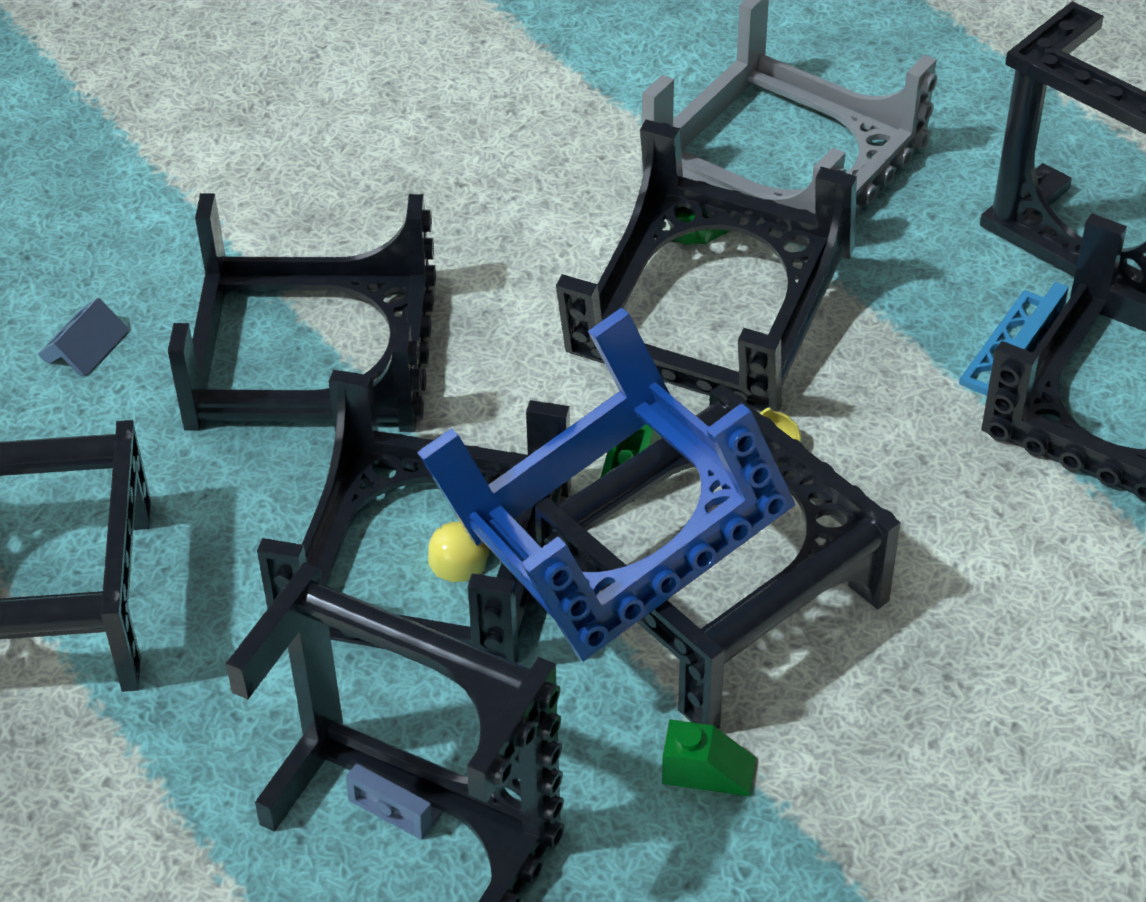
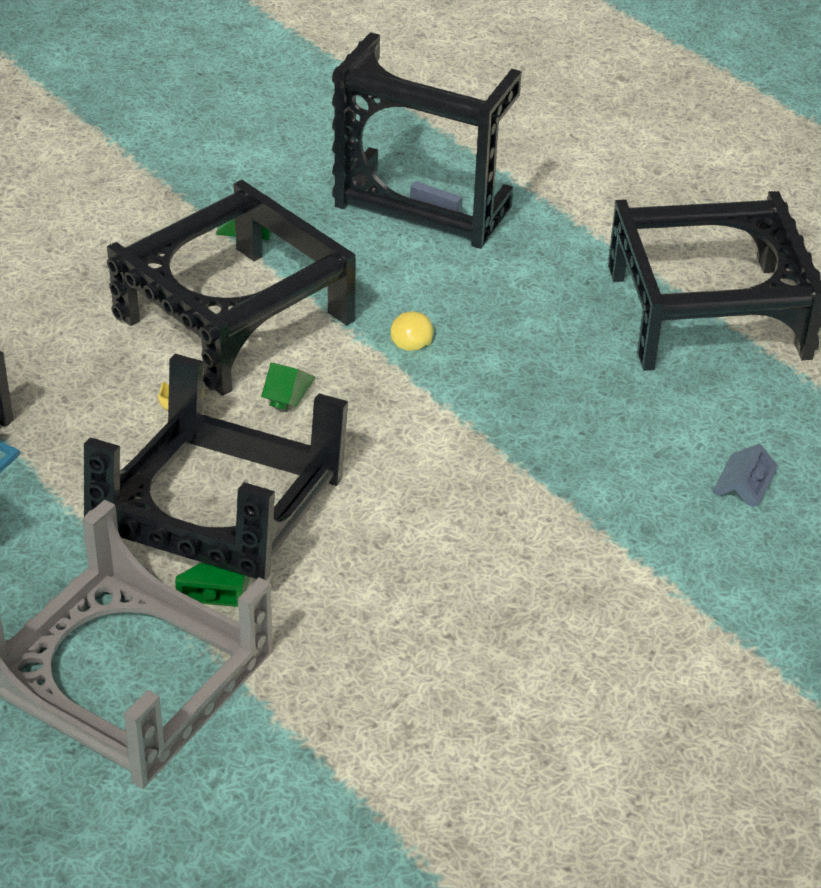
camera: 175 degrees right, 5 degrees down
(391, 268) = (490, 412): black arch -> none
(494, 602) = (358, 328): black arch -> none
(725, 454) = (327, 190): blue arch -> none

